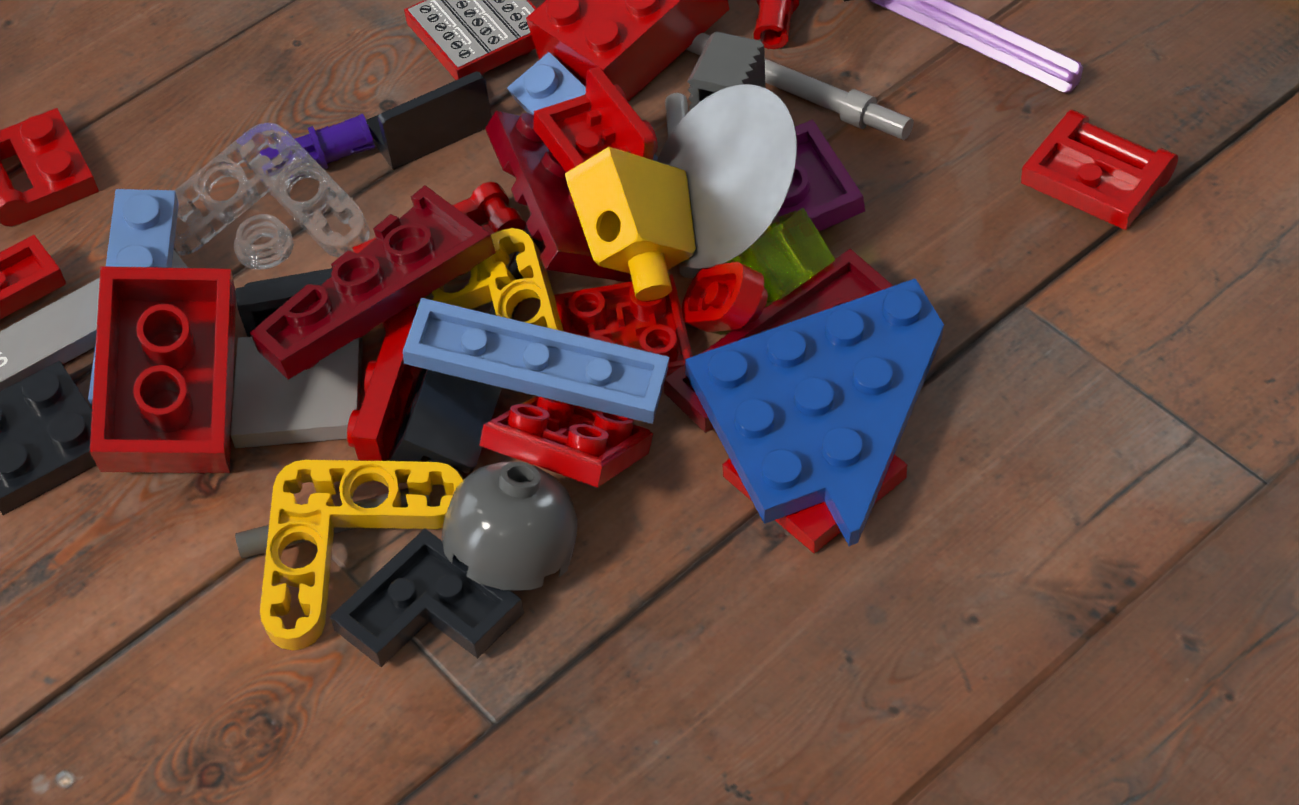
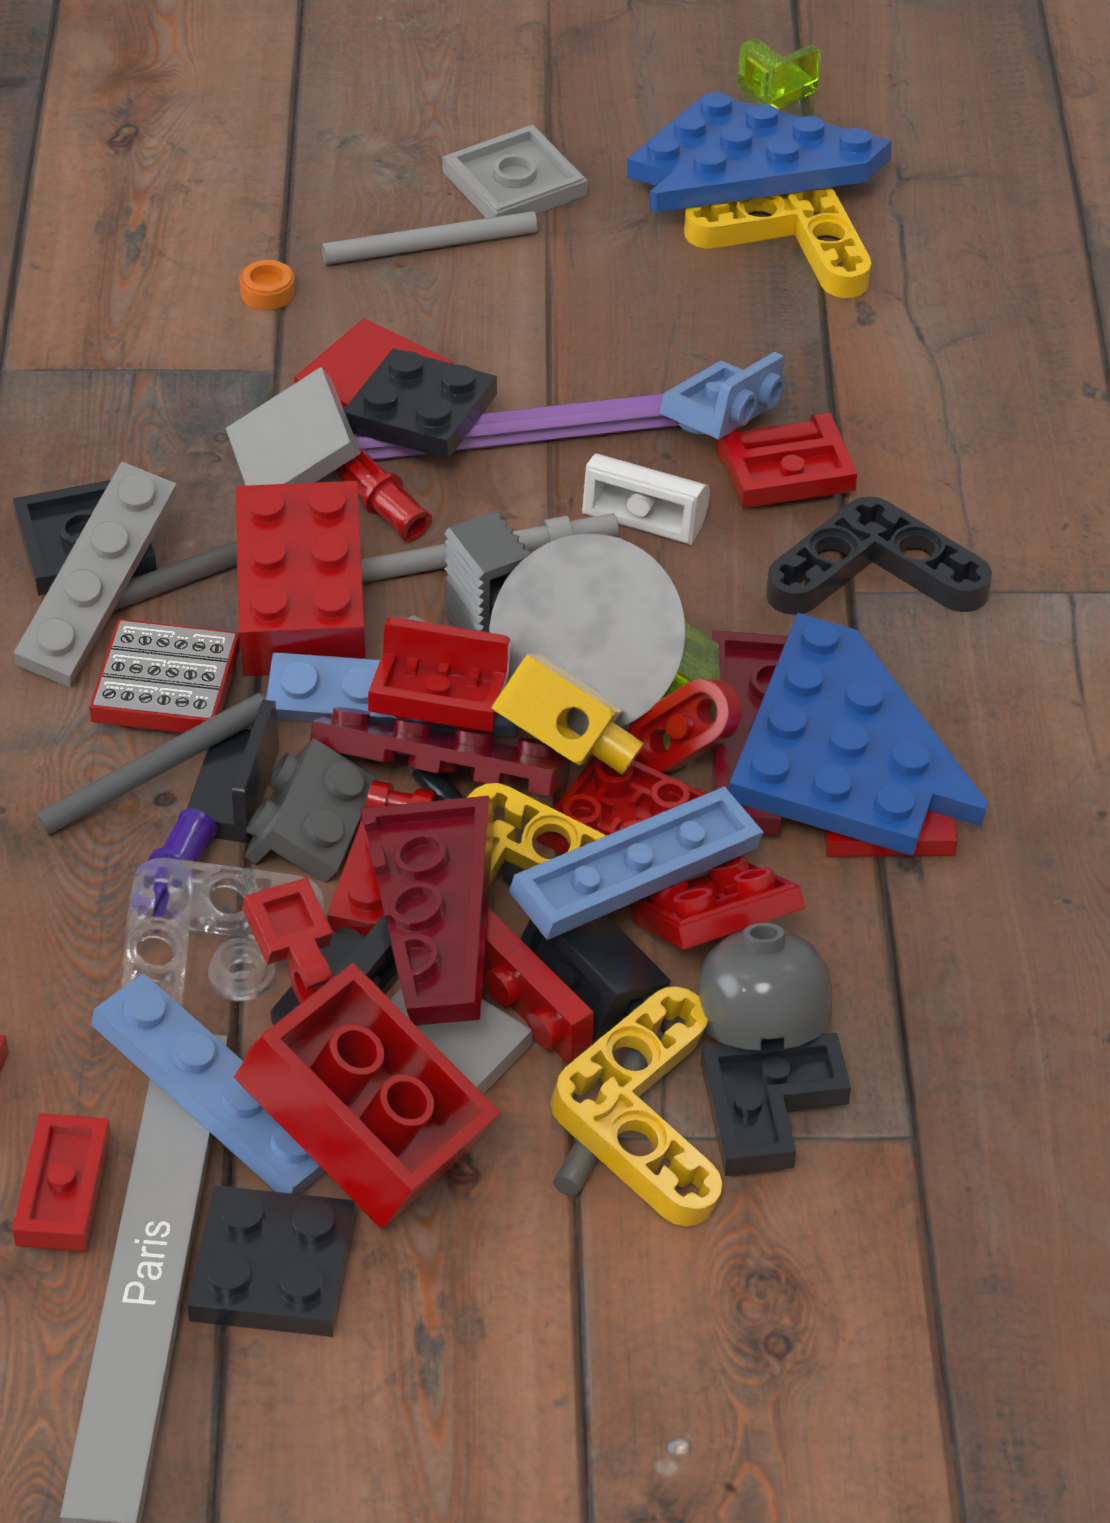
camera: 55 degrees left, 5 degrees down
(294, 233) = (293, 928): none -> red plate
(387, 72) = (149, 765): none -> dark grey bar
(448, 164) = (310, 810): none -> dark grey bracket
(950, 124) = (645, 498): none -> white brick
(1071, 274) = (877, 533): none -> black beam
(1104, 88) = (725, 396): none -> medium blue bracket

